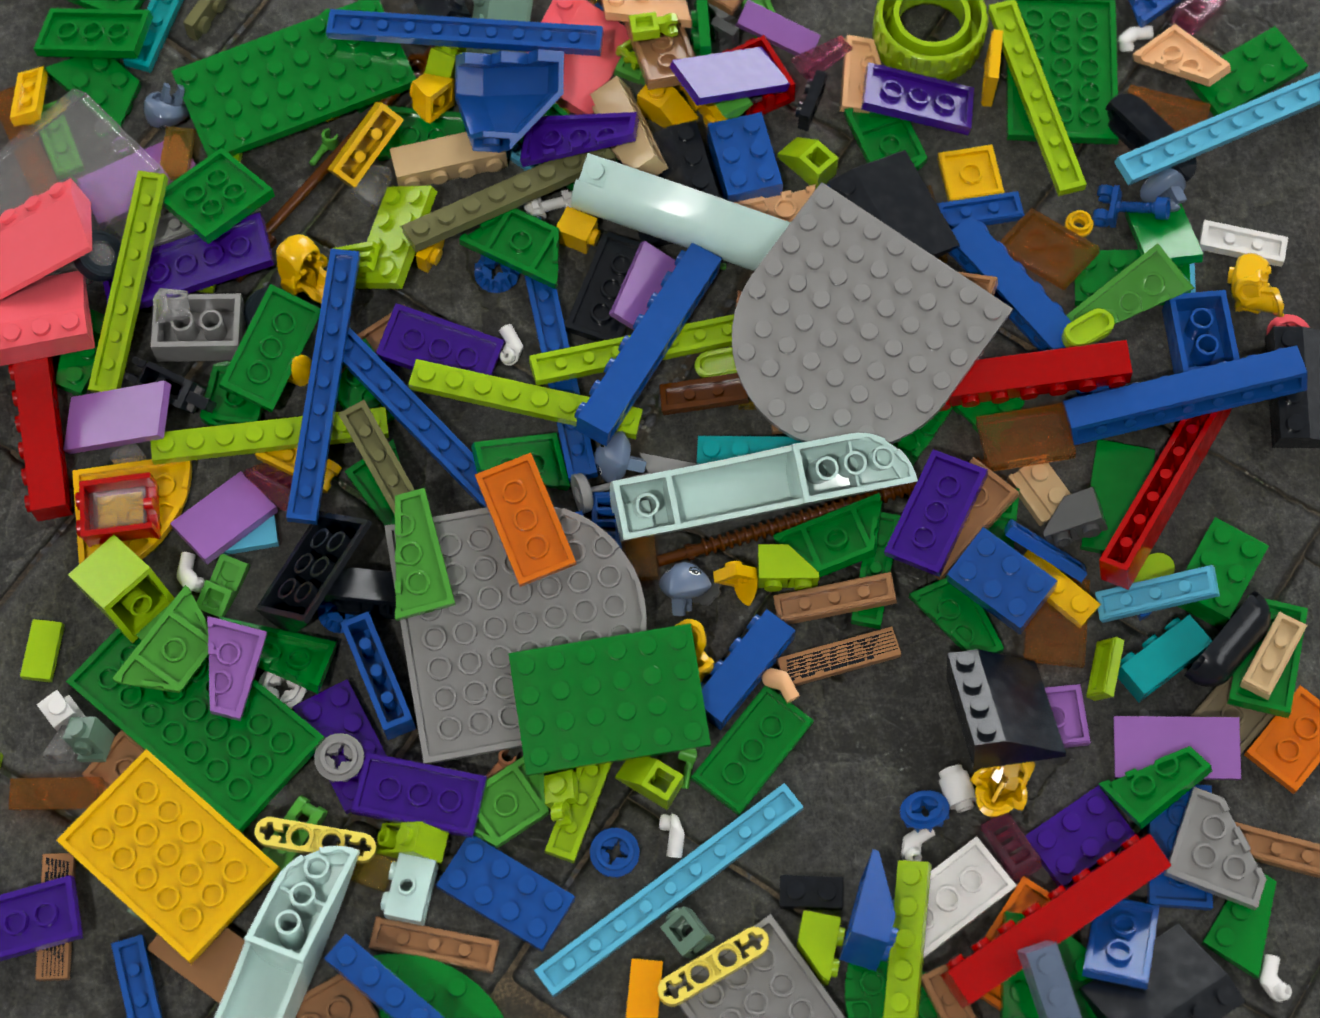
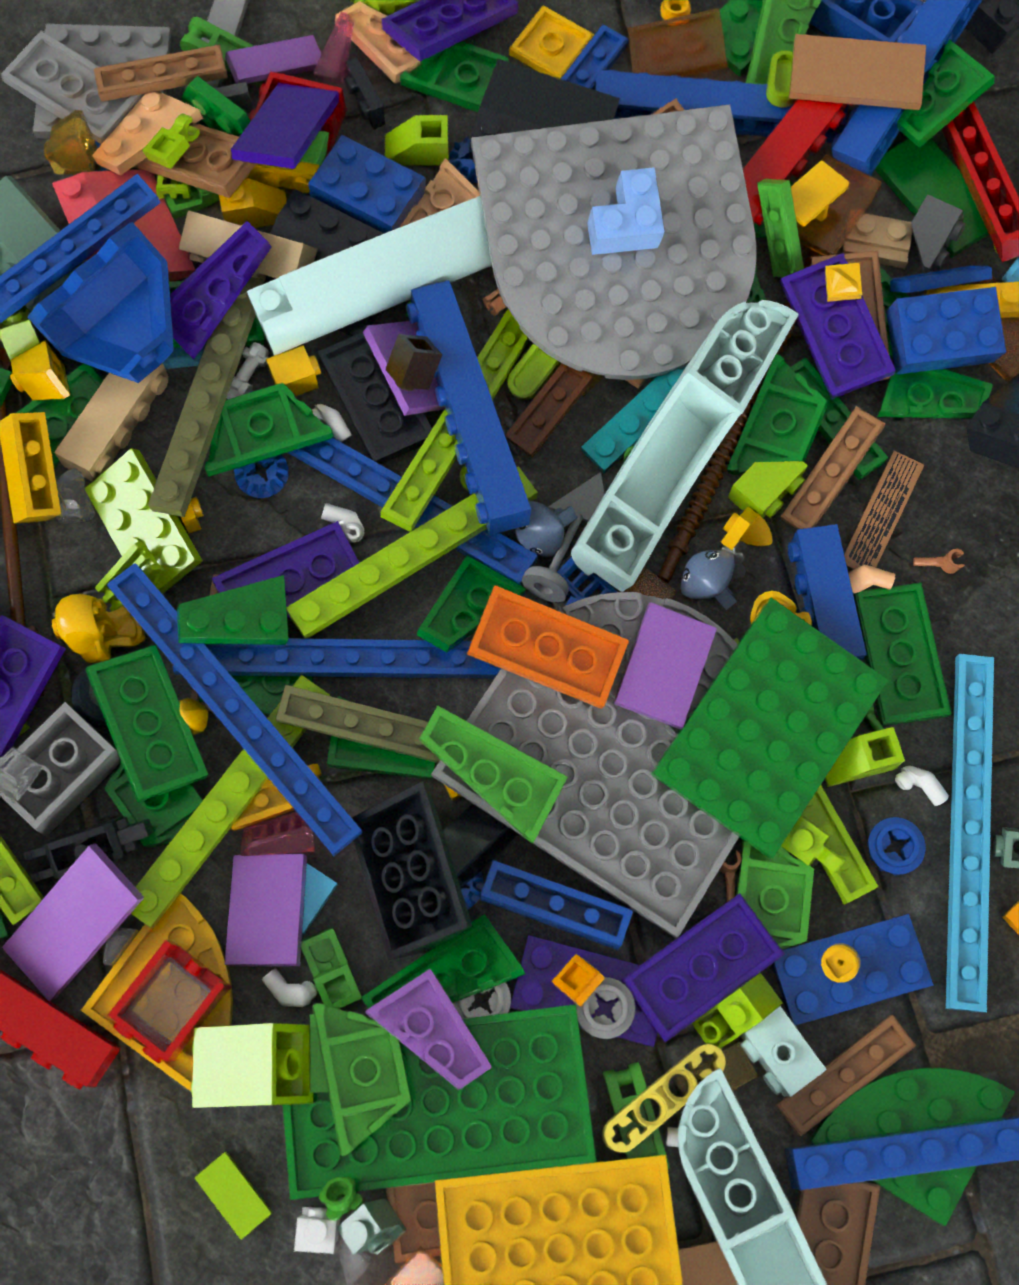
camera: 50 degrees left, 5 degrees up
(89, 703) = (337, 1189): none -> bright green plate
(341, 726) = (578, 980): none -> light orange tile
(382, 336) = (237, 616): none -> green wing
(498, 874) = (840, 962): none -> yellow tile
(570, 279) = (334, 419): none -> white arm
(585, 600) = (665, 665): none -> medium lavender tile
(641, 285) = (413, 362): none -> dark brown brick
(843, 721) = (944, 562): none -> nougat hand
(862, 323) = (634, 221): none -> light blue brick
(964, 486) = (843, 282): none -> yellow tile
(969, 417) = (780, 226): none -> bright green tile
(1010, 415) = (816, 192): none -> yellow panel
(1125, 364) = (857, 71): none -> medium nougat tile
(1180, 434) = (947, 91): none -> green wing

